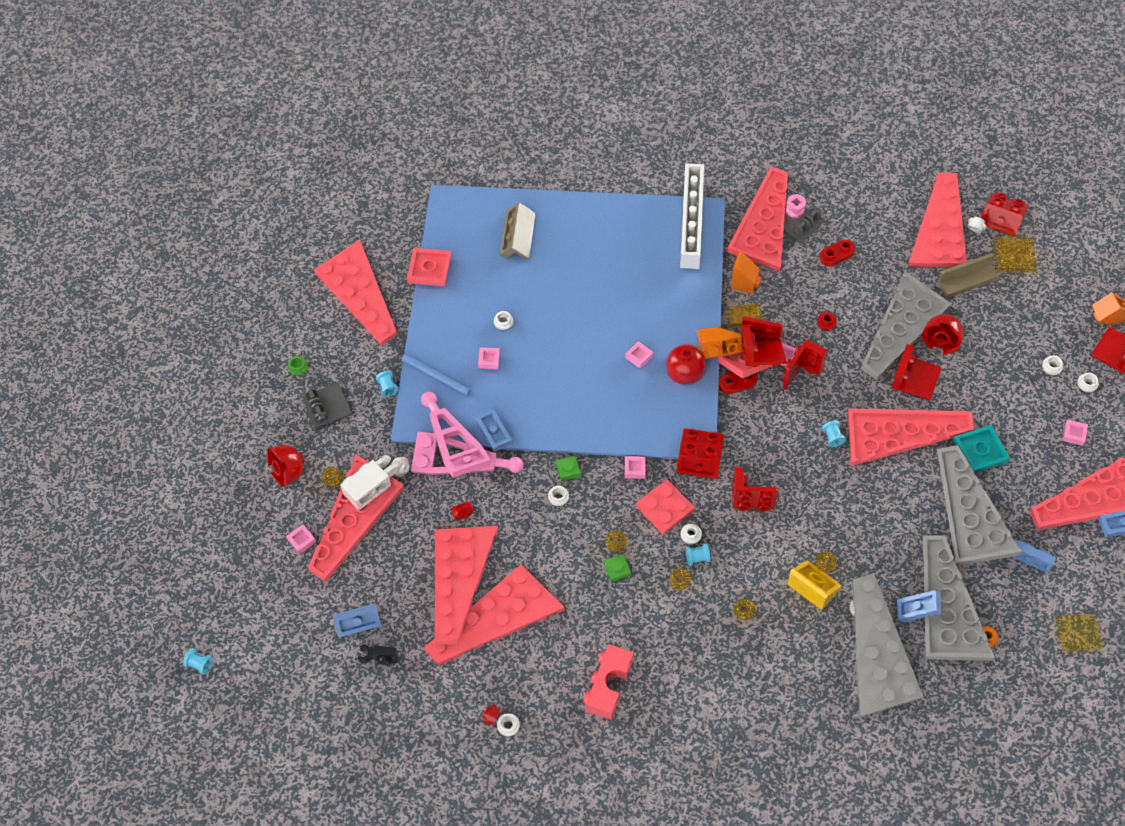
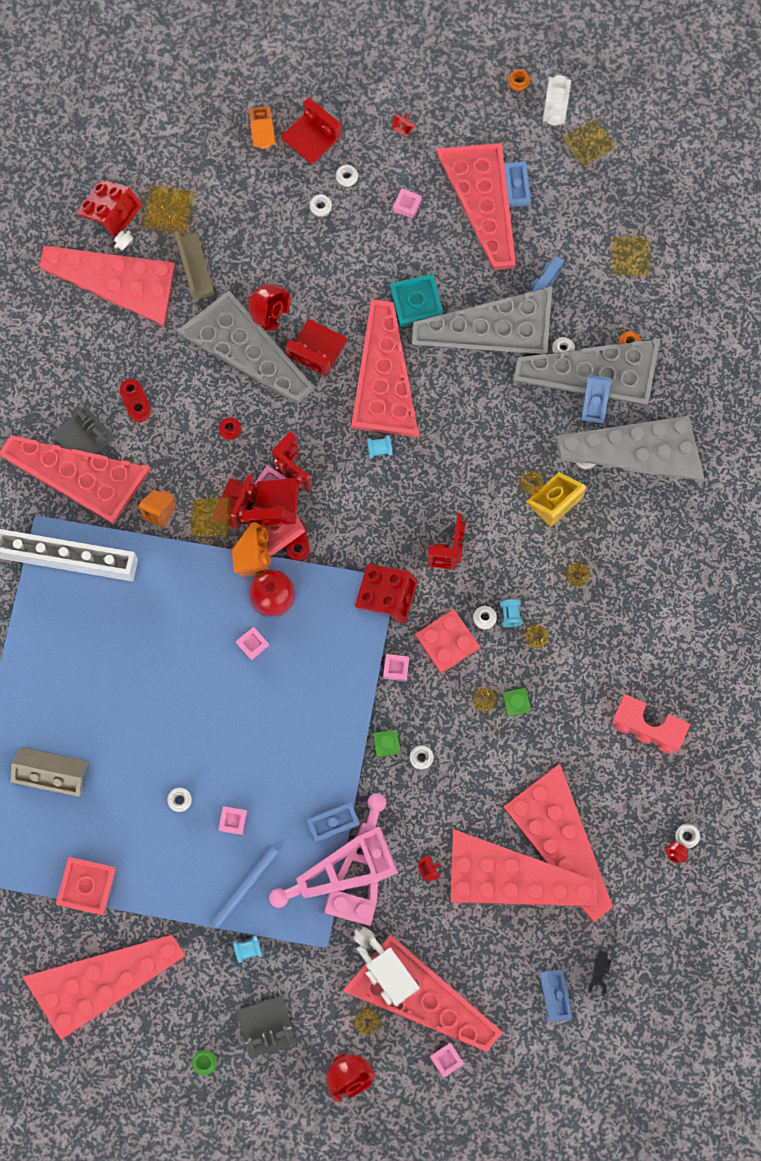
camera: 85 degrees left, 15 degrees up
(792, 209) = (66, 439): bright pink wheel -> none
(972, 575) = (562, 341): none -> white plate

